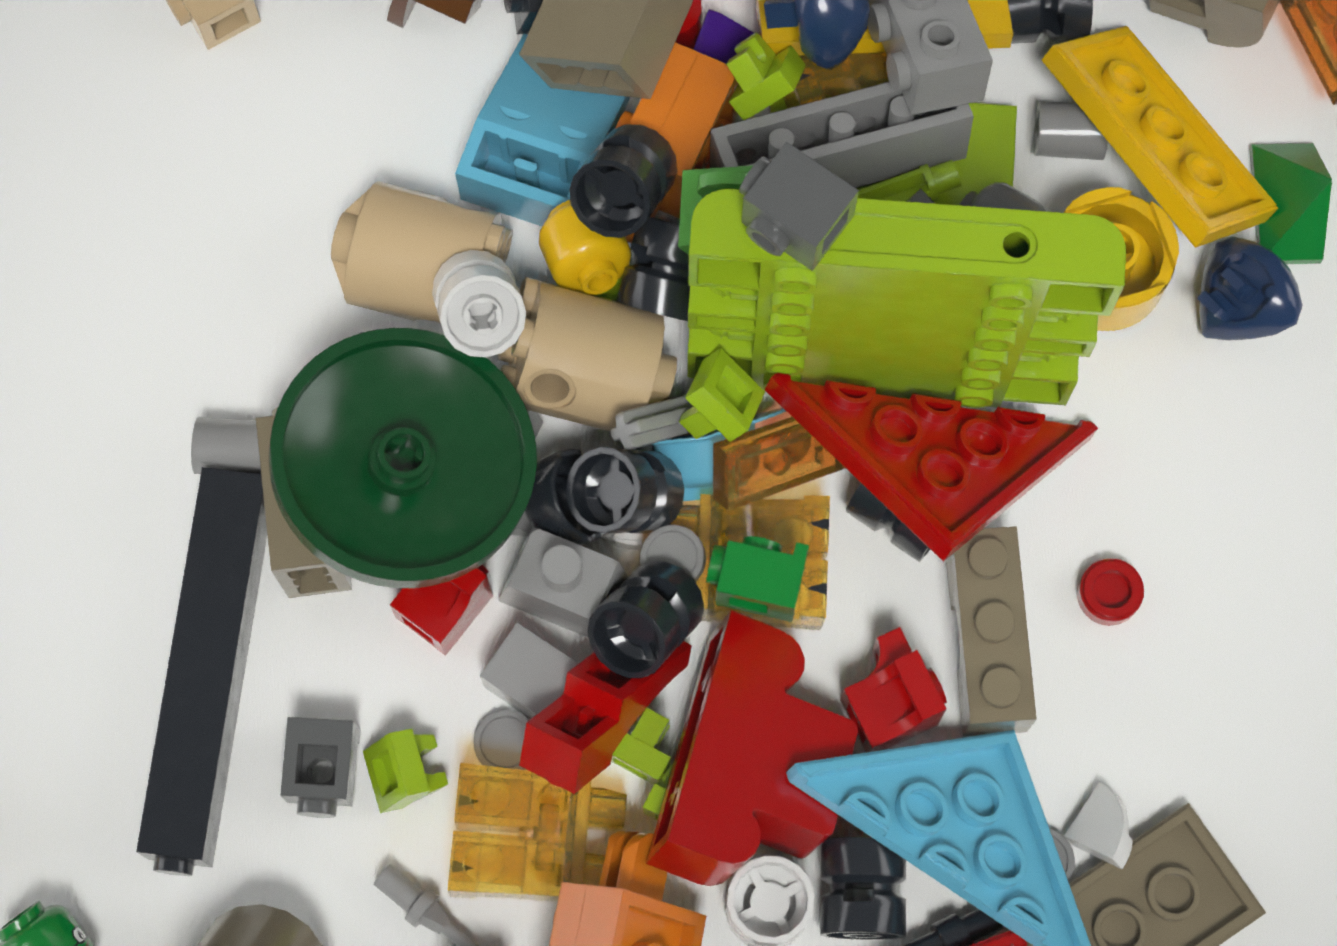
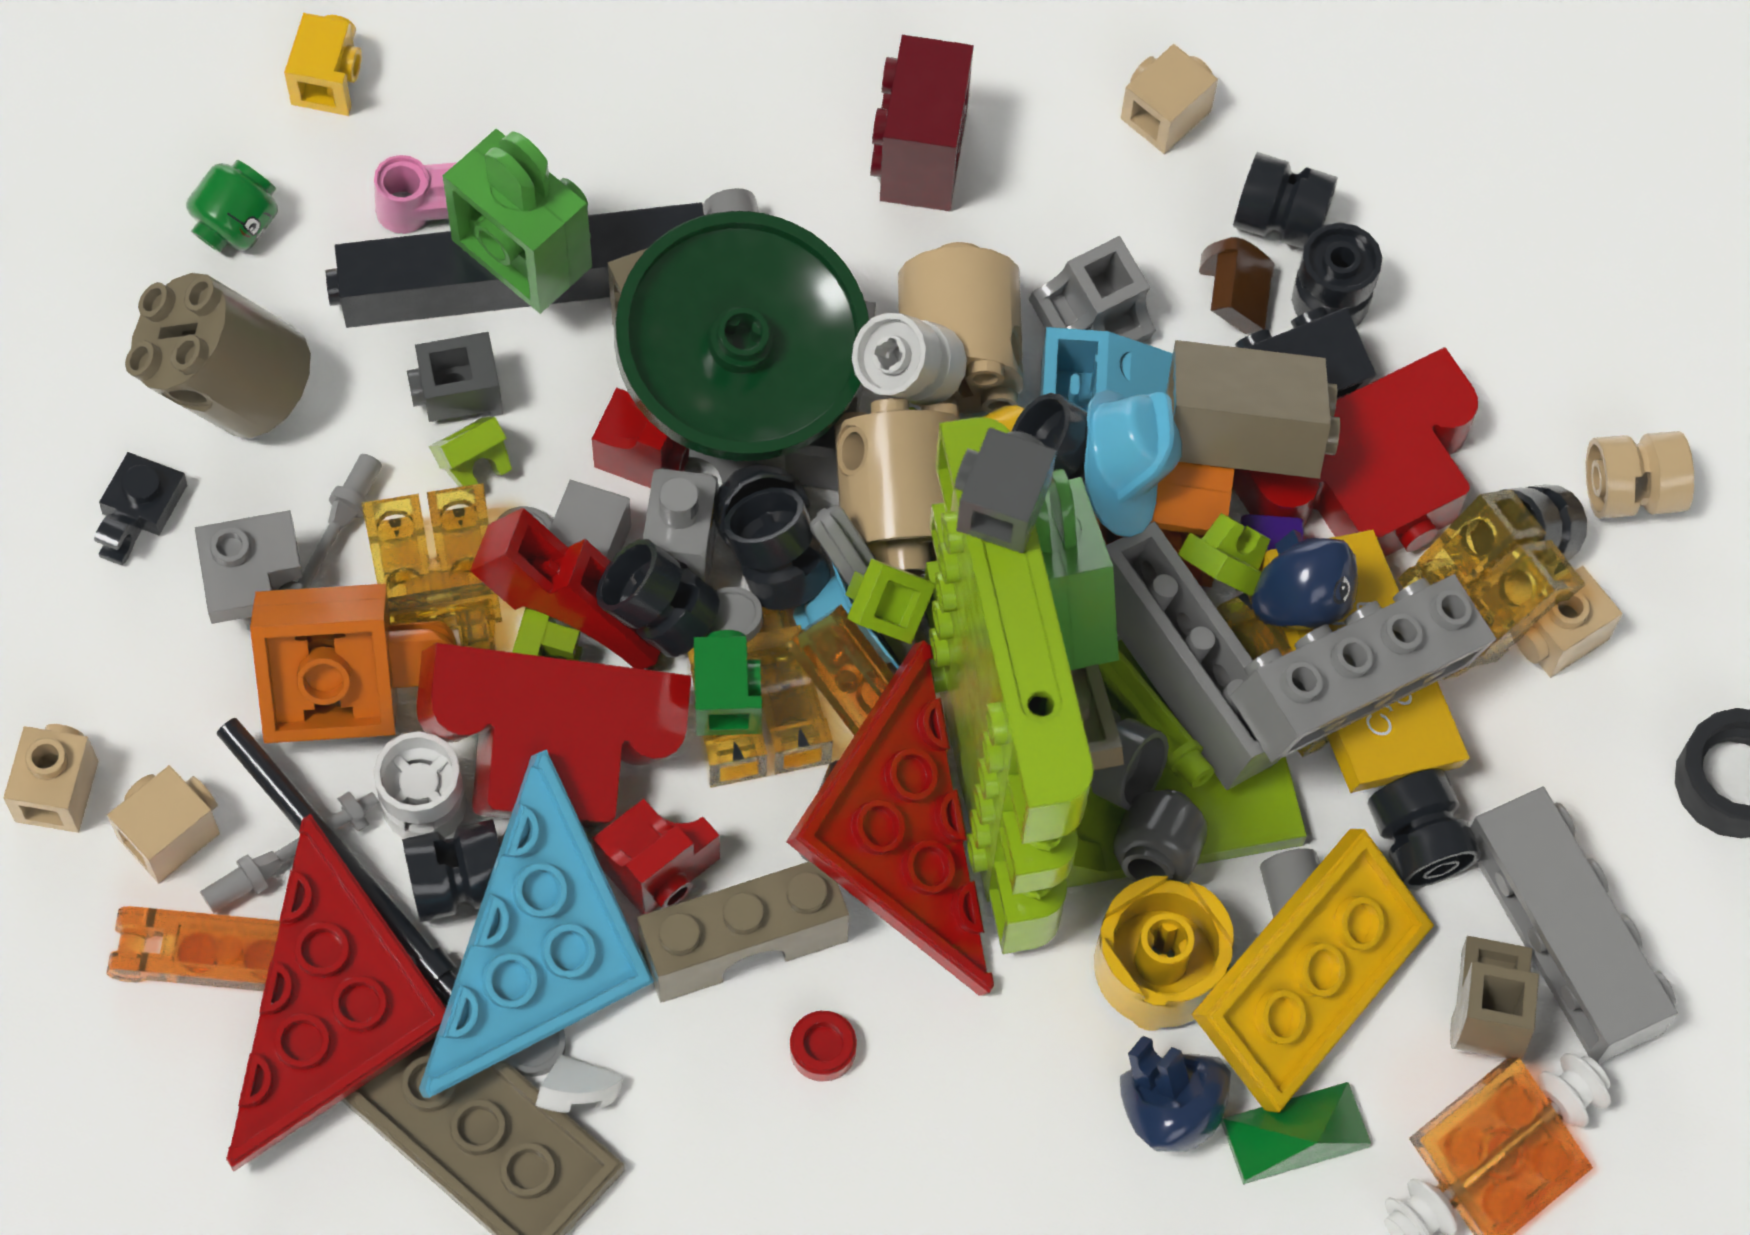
camera: 70 degrees right, 10 degrees down
(92, 730) = (409, 175): none -> bright pink piece
(178, 226) = (922, 122): none -> dark red brick
(192, 646) = (519, 218): none -> bright green brick
(419, 125) = (1097, 293): none -> light grey brick
(653, 119) = (1127, 455): none -> medium azure piece

